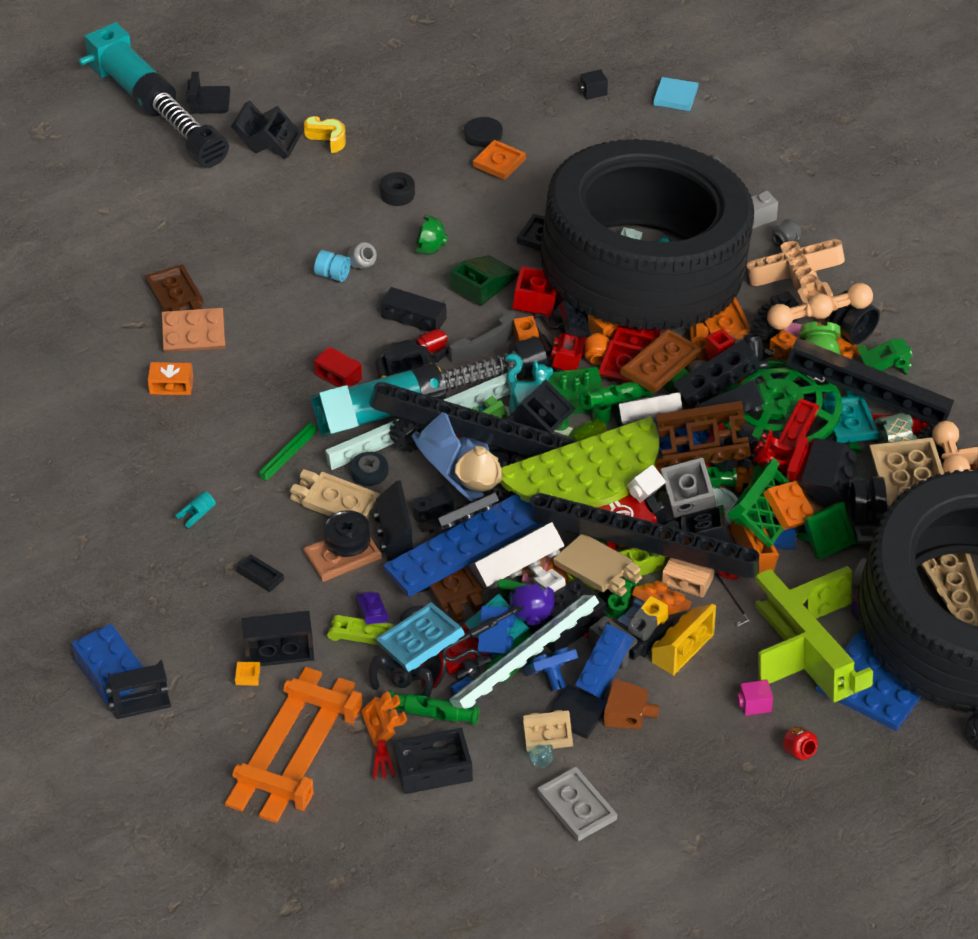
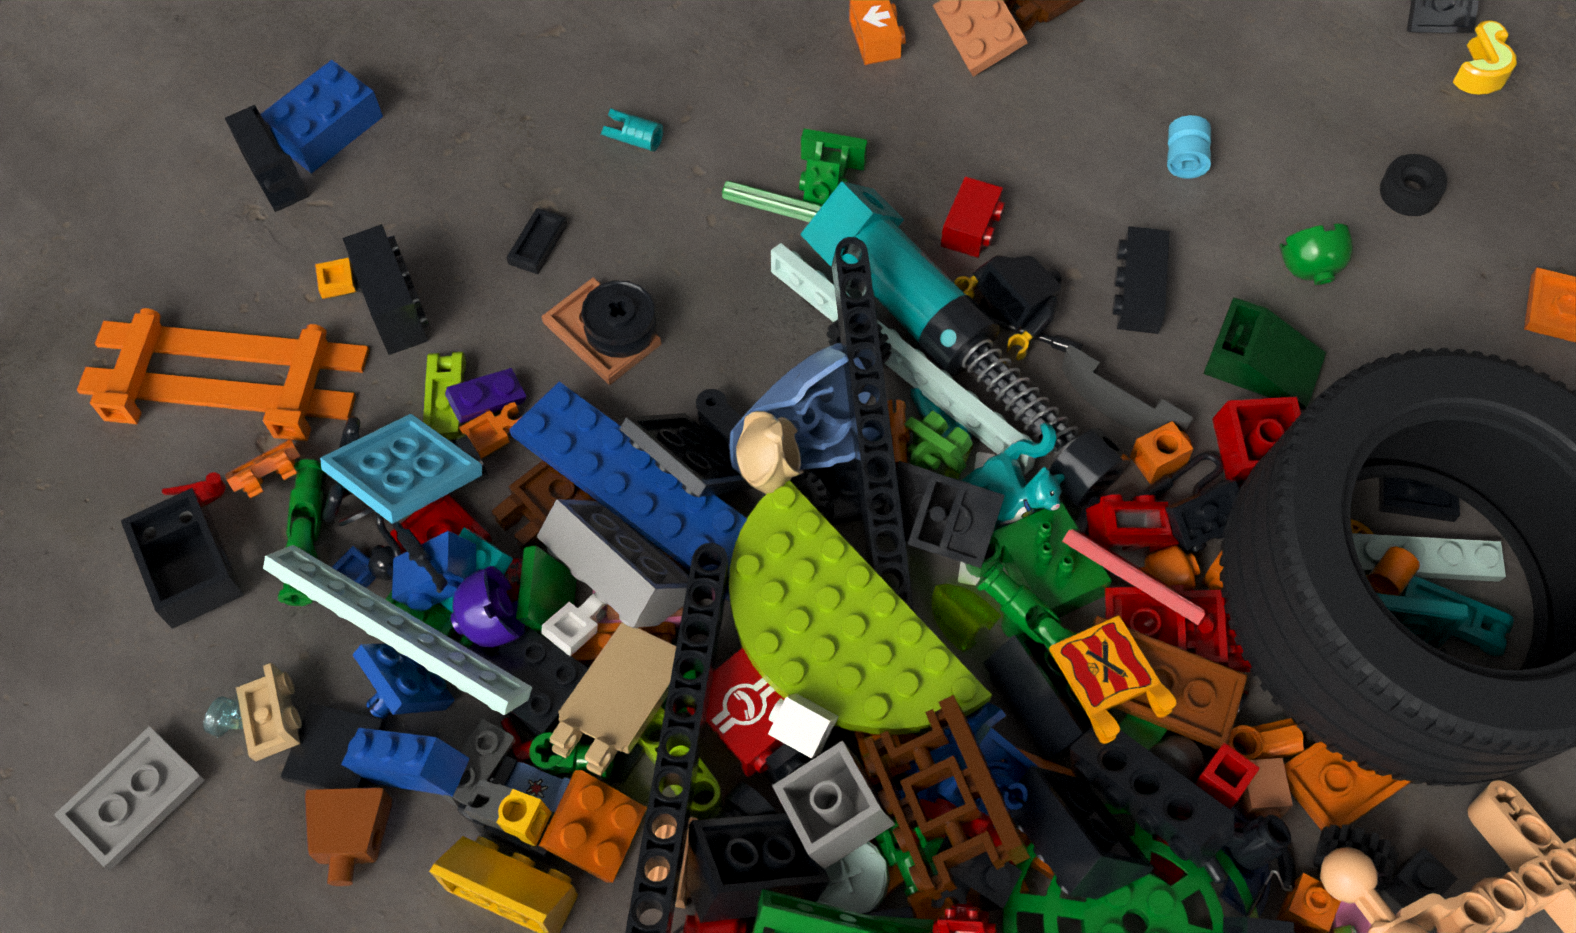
camera: 75 degrees right, 15 degrees up
(263, 419) = (828, 167): none -> green tile
(331, 494) = (705, 292): tan tile -> none
(362, 255) = (1216, 181): light grey head -> none
(369, 468) = (778, 327): black wheel -> none
(393, 522) = (662, 378): black slope -> none
(394, 608) = (490, 432): none -> orange plate
(433, 340) = (1084, 323): red brick -> none
(603, 350) = (1136, 576): none -> tile
(656, 370) = (1107, 671): none -> flag

